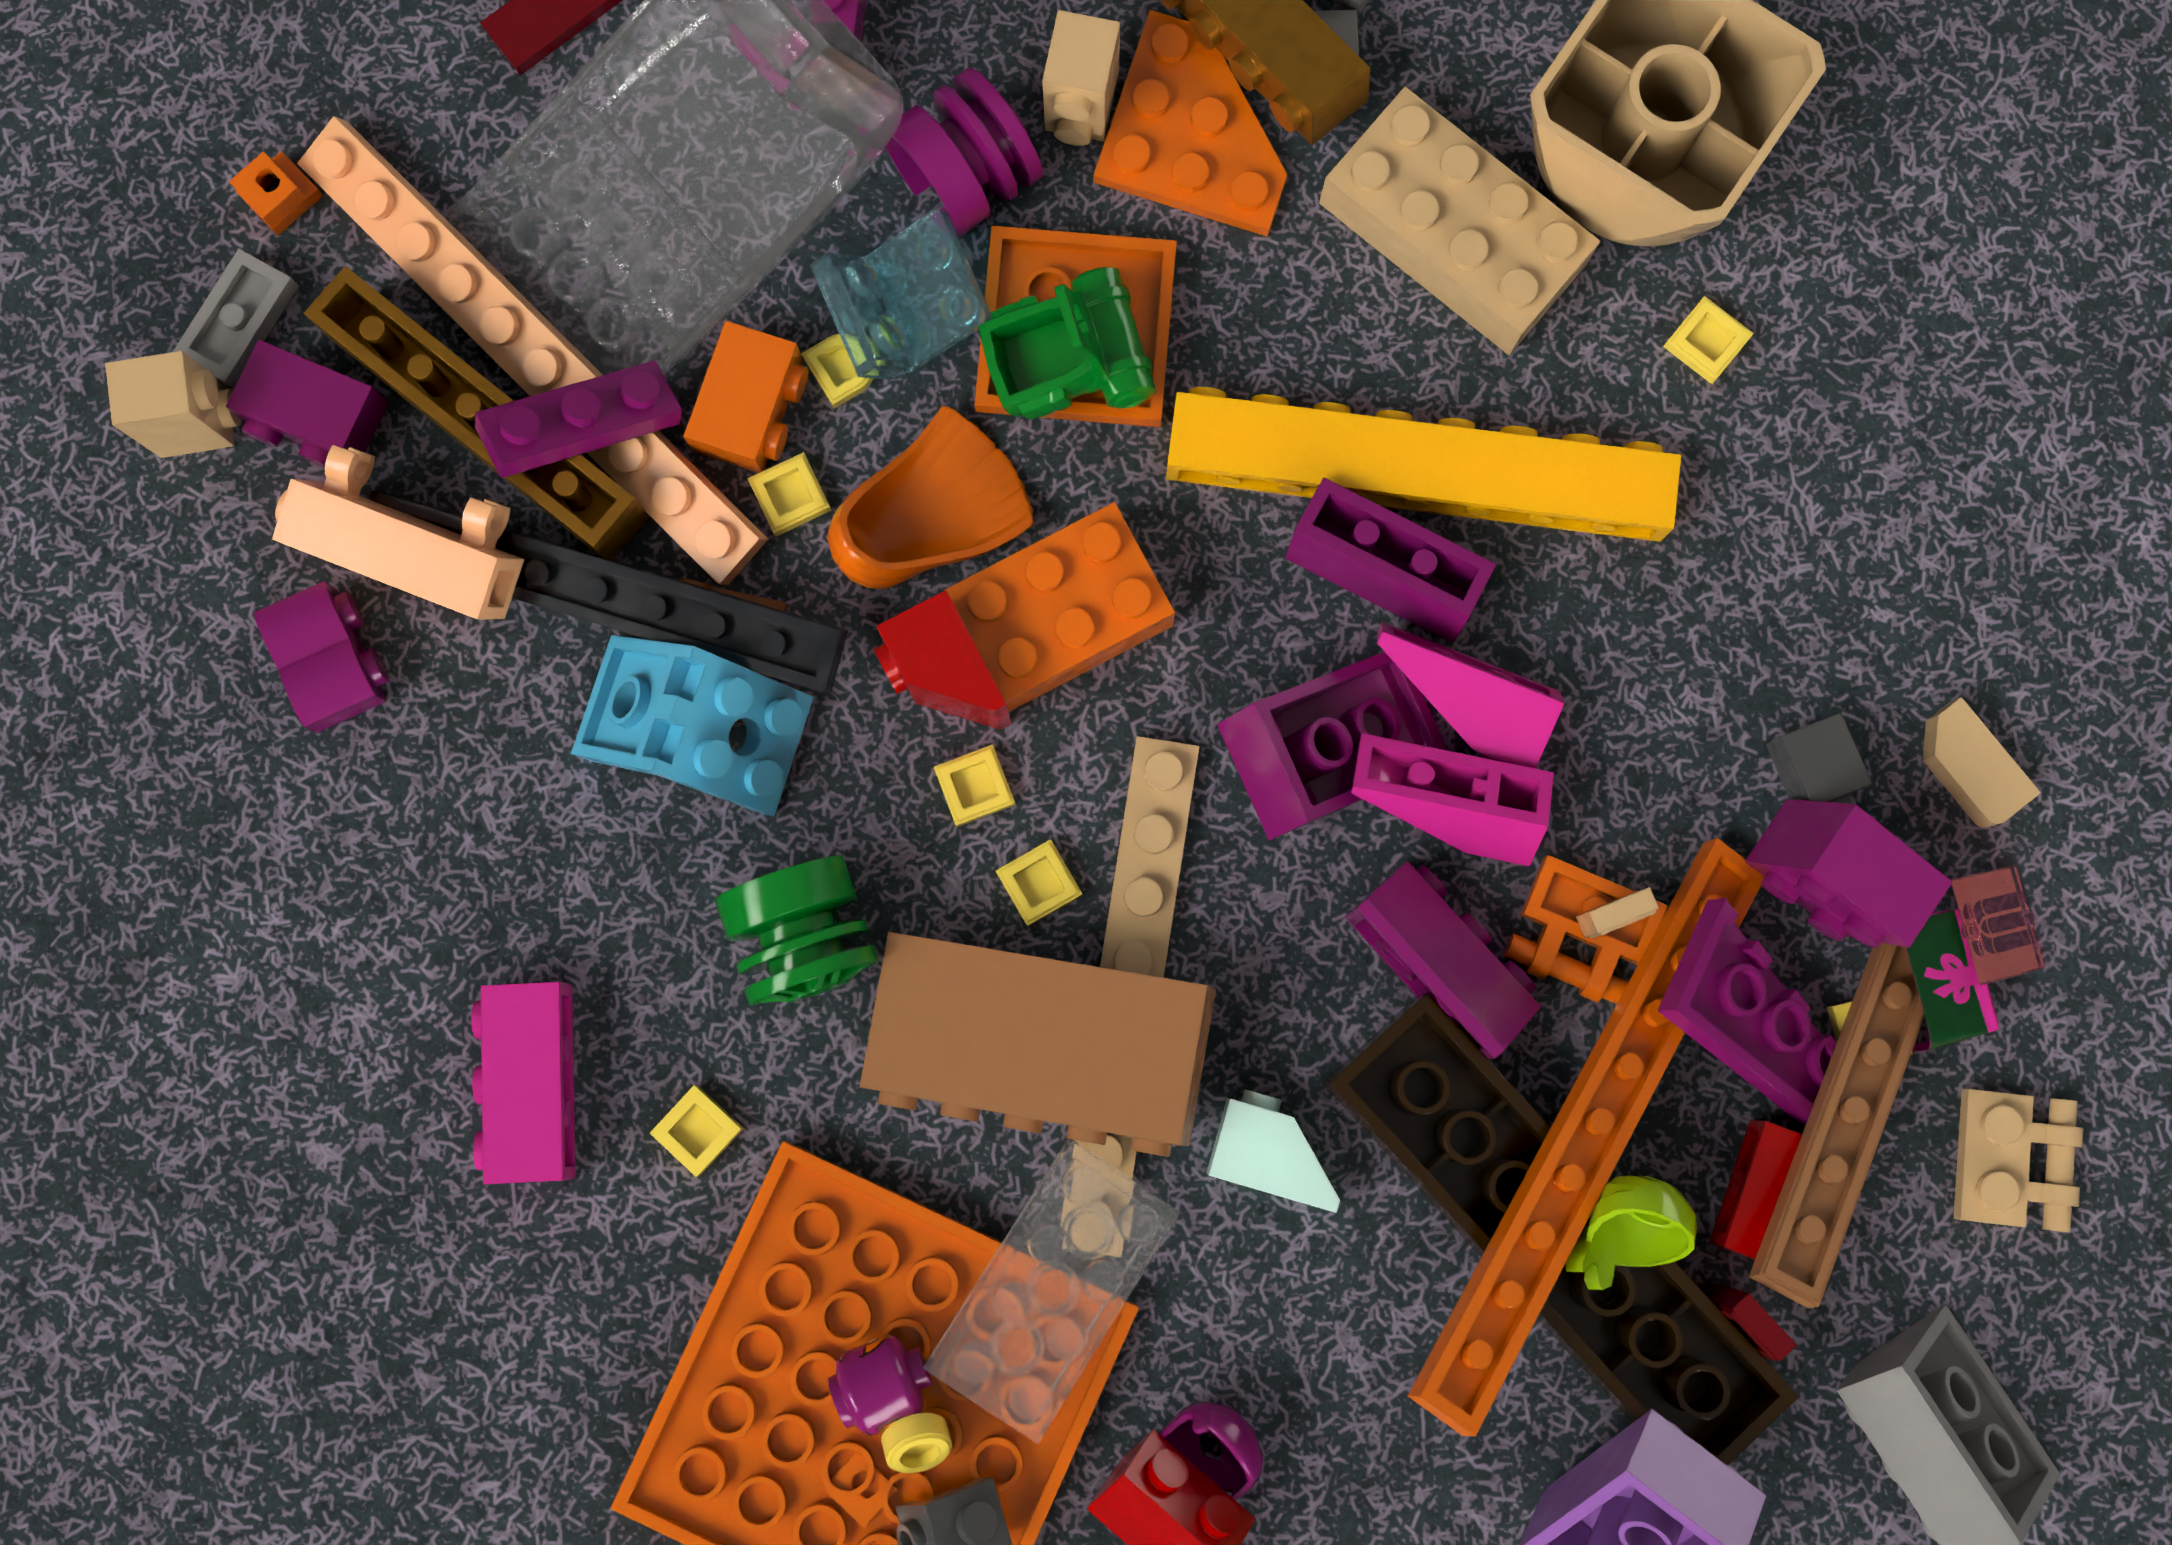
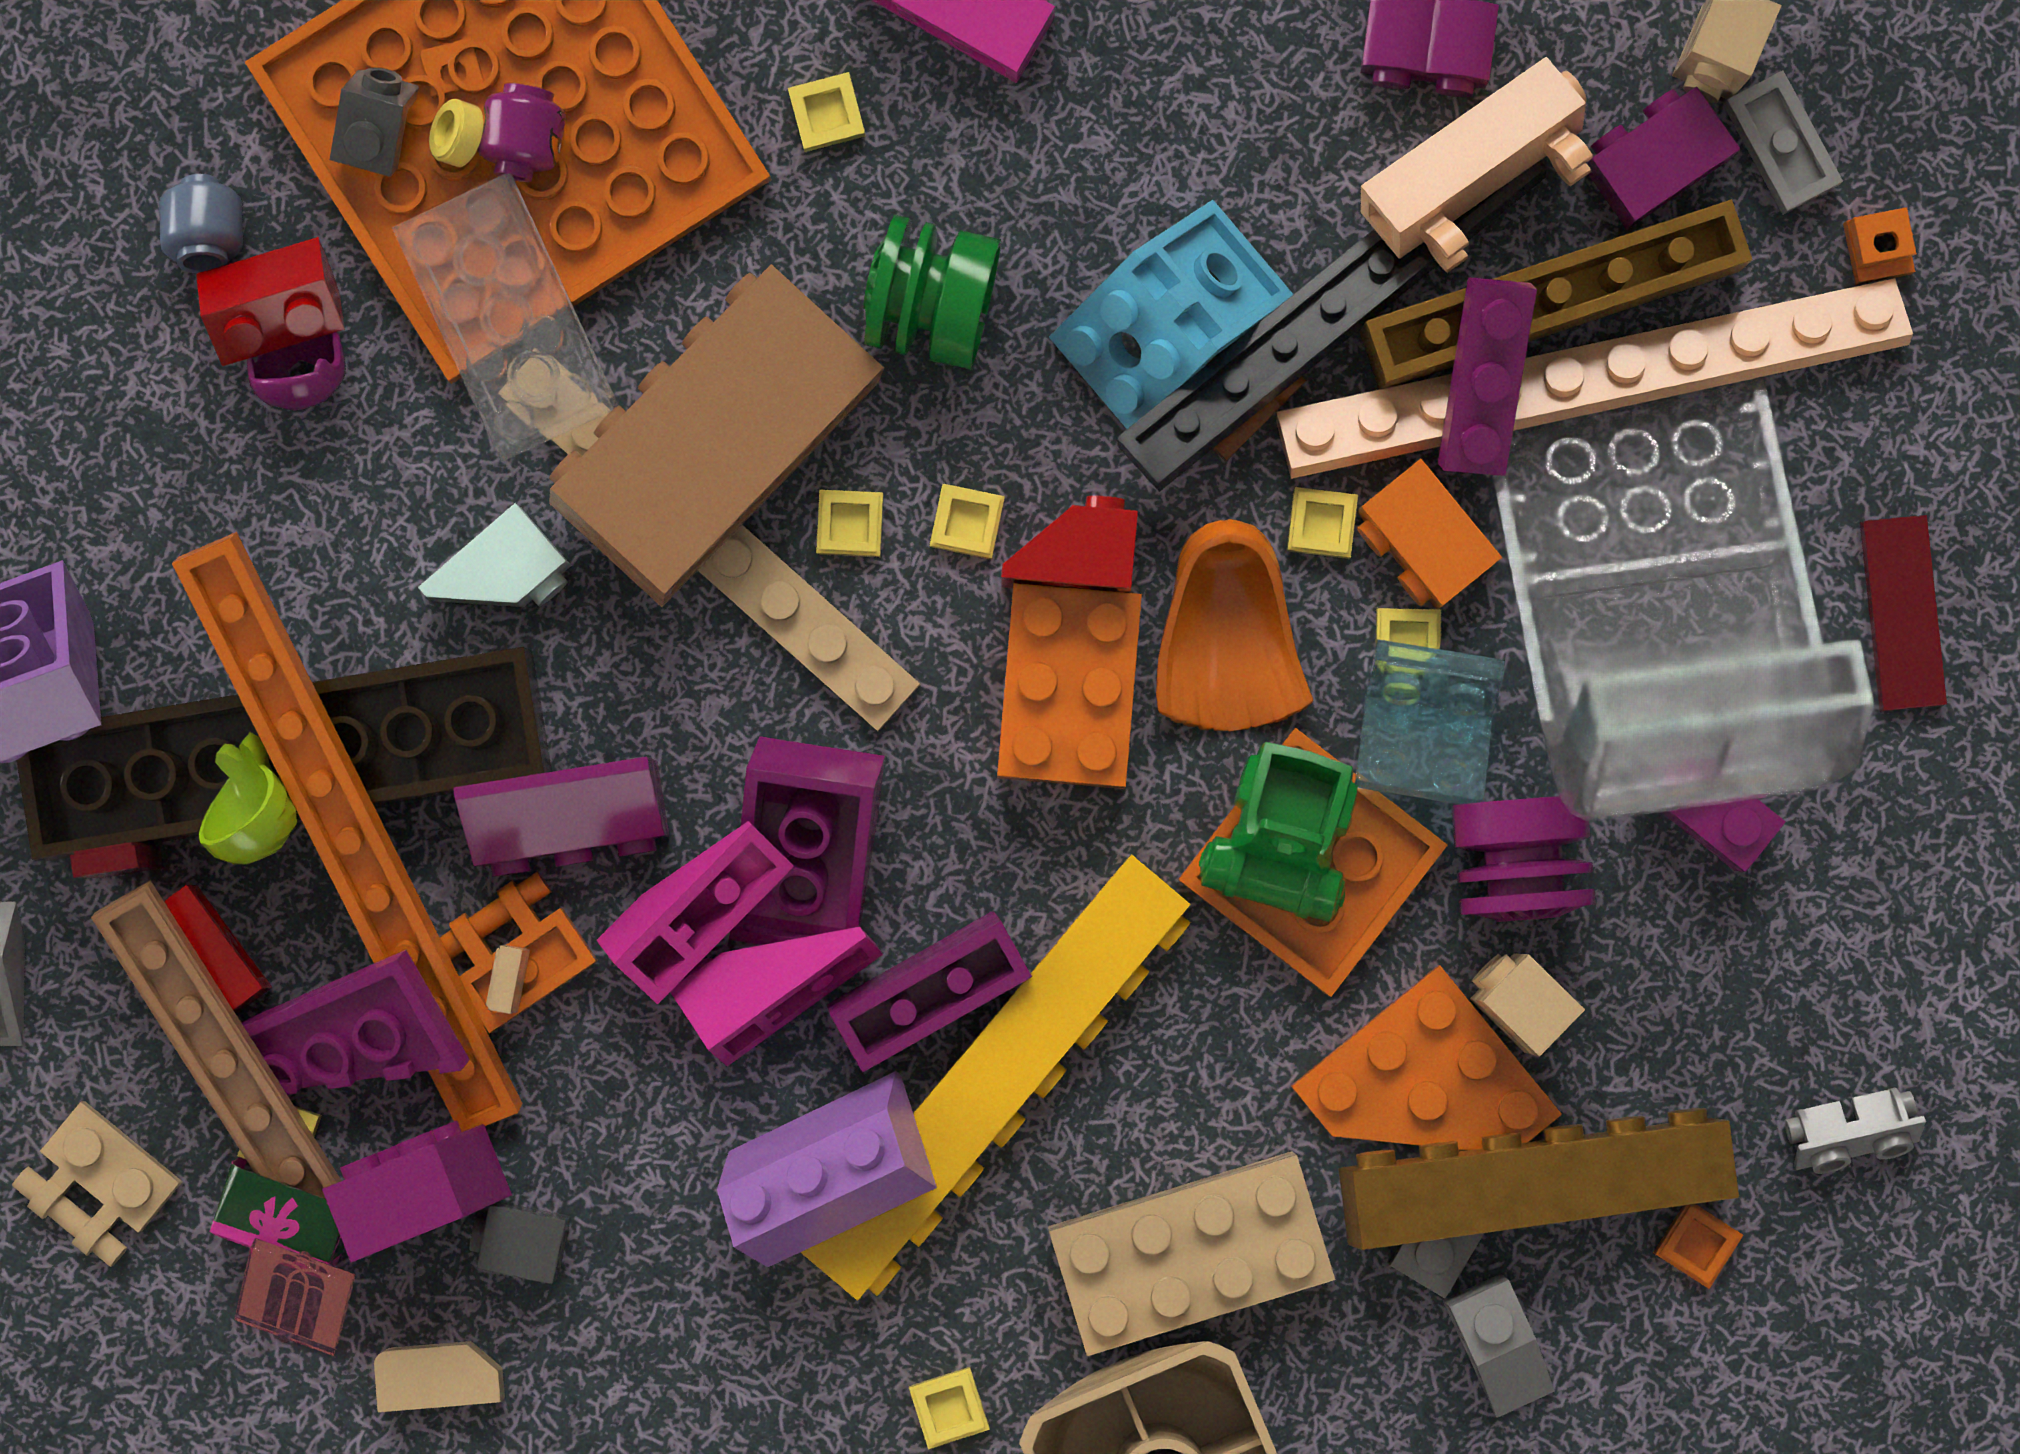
camera: 120 degrees right, 5 degrees up
(1595, 548) = (824, 1172): none -> medium lavender slope

